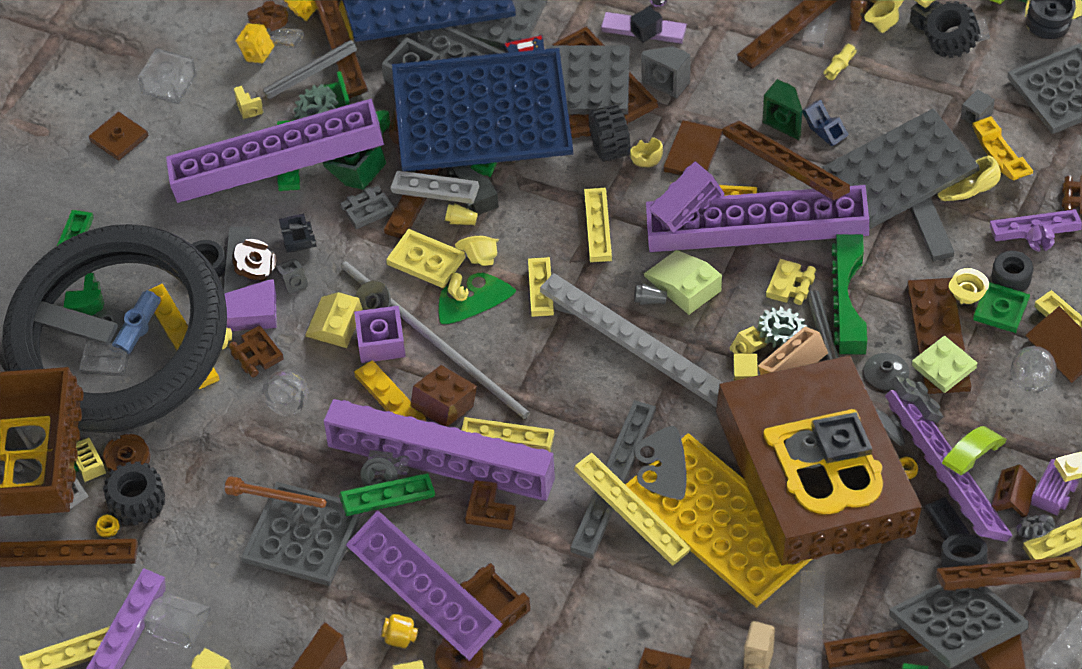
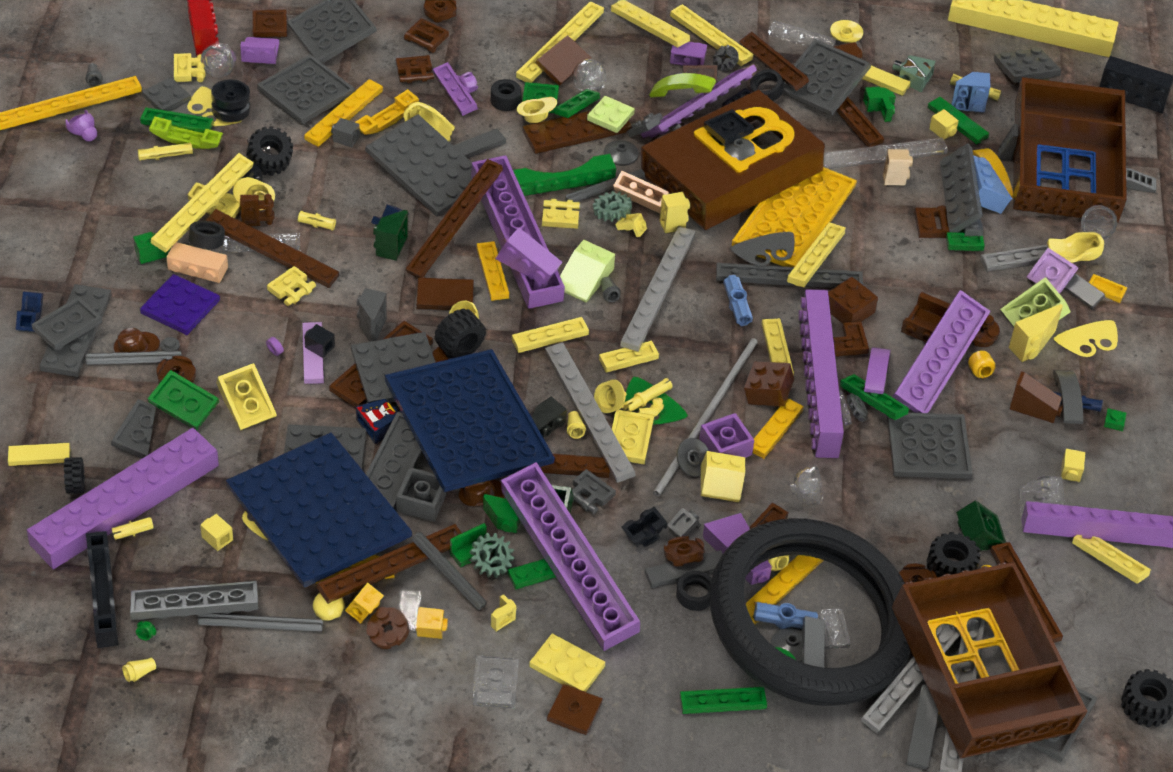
camera: 115 degrees left, 5 degrees down
(165, 541) = (980, 525): none -> dark green slope
(170, 139) = (567, 663): none -> light yellow plate
(235, 486) = (910, 499): dark orange piece -> none
(431, 511) = (877, 370): none -> medium lavender slope
(435, 187) = (563, 436): light grey plate -> none
(472, 279) = (641, 399): none -> light yellow pin
(473, 226) = (590, 412): none -> light grey plate
(544, 524) = (852, 301): none -> reddish brown brick
(580, 411) = (738, 300): none -> medium blue piece
(749, 21) = (289, 281): none -> light yellow plate
(979, 340) = (577, 103): none -> green tile
(1023, 120) = (345, 110): none -> yellow plate

